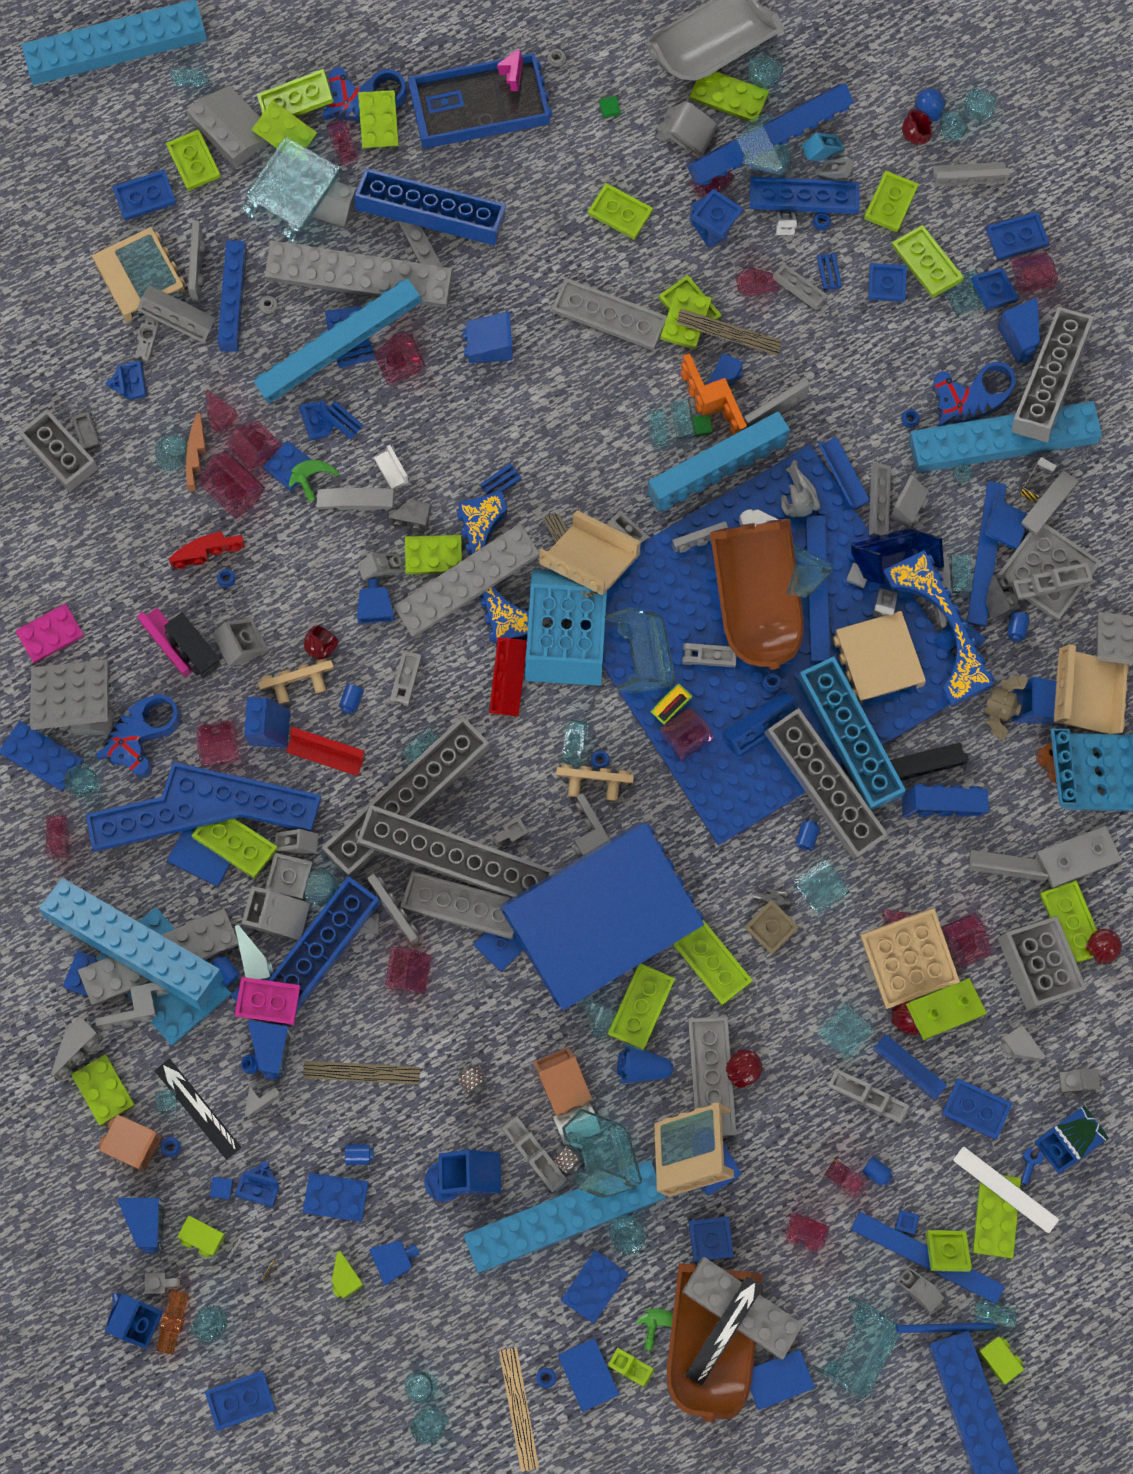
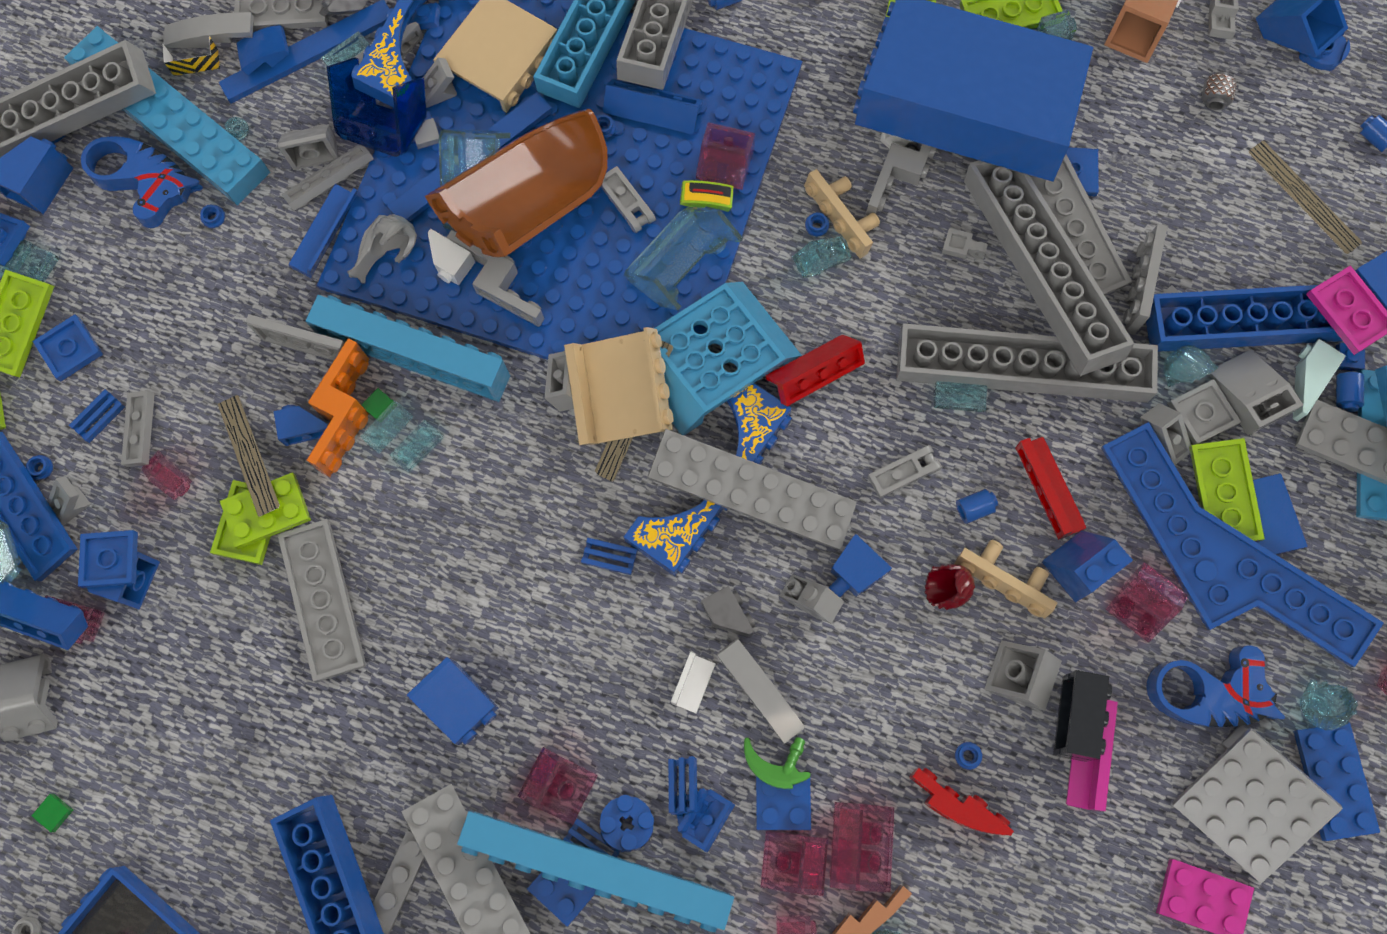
camera: 125 degrees left, 0 degrees up
(342, 386) = (628, 839): none -> blue plate
(407, 970) = (1188, 225): clear pink slope -> none
(432, 553) = (749, 558): lime plate -> none
(620, 211) = (182, 690): lime plate -> none

